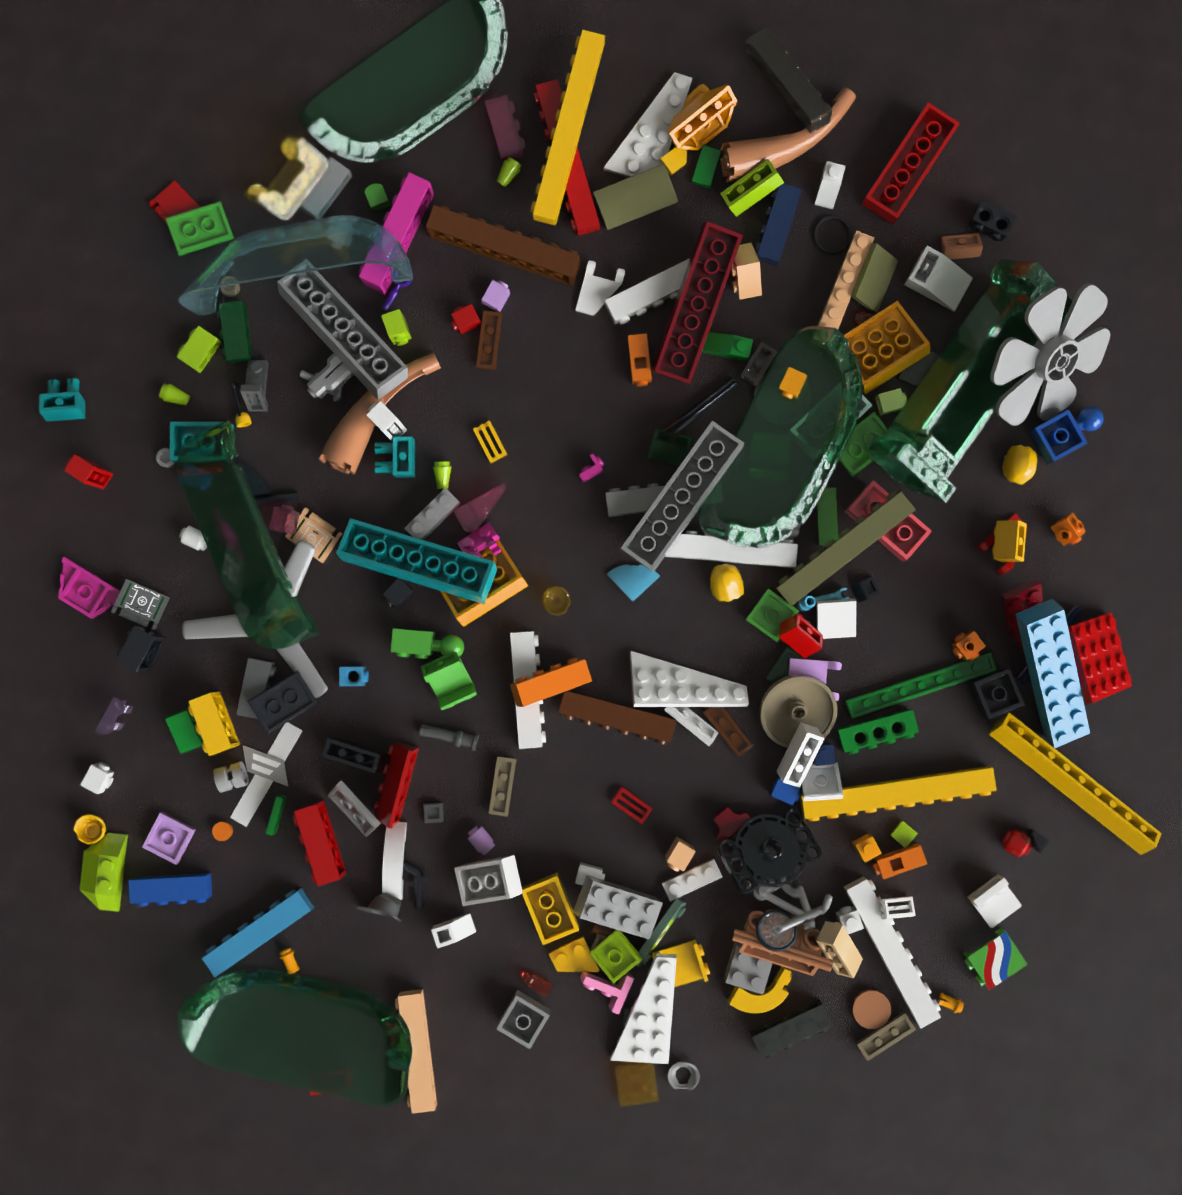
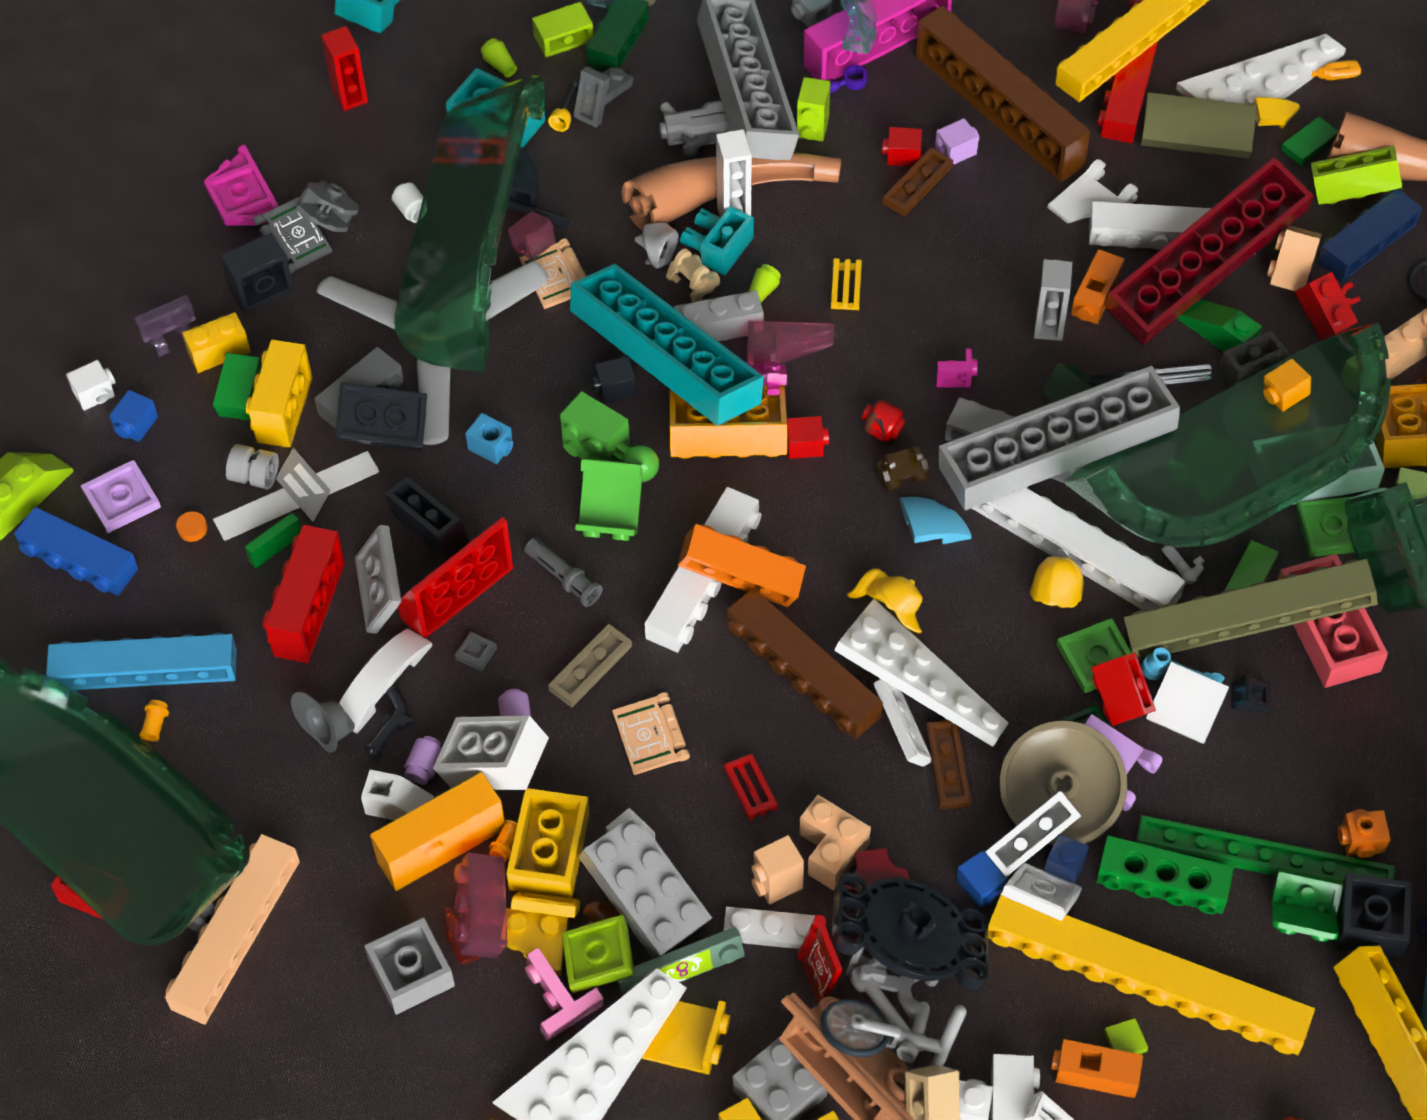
camera: 30 degrees right, 30 degrees down
(89, 828) = (36, 430): yellow hair -> none
(137, 784) = (133, 416): none -> blue brick
(147, 572) = (327, 206): none -> dark grey hinge
(149, 707) = (211, 341): none -> yellow brick
(163, 458) = (437, 112): light grey tile -> none
(363, 484) = (653, 241): none -> light grey piece
(397, 490) = (702, 279): none -> tan piece
(450, 896) = (422, 760): none -> lavender brick
(489, 940) = (438, 831): none -> light orange brick
(508, 171) = (1056, 34): lime cone -> none
(524, 916) = (503, 845): none -> light orange pin
(532, 567) = (806, 437): none -> red brick
(537, 964) = (481, 905): none -> clear pink brick
(556, 600) = (812, 487): clear yellow hair -> none
(559, 805) = (650, 734): none -> light nougat piece
(569, 530) = (883, 421): none -> red head
(570, 941) = (545, 904): none -> yellow tile
(598, 557) = (902, 466): none -> dark brown piece
(624, 394) = (1053, 299): none -> light grey brick
(642, 646) = (894, 591): none -> yellow hair
(700, 812) = (836, 837): none -> light nougat brick
(703, 118) = (1334, 88): light orange wedge -> none
(729, 891) = (819, 959): none -> red piece
(782, 299) = (1327, 306): none -> red brick
(866, 847) = (1058, 1019): light orange brick -> none
(959, 710) = (1306, 904): none -> green bracket

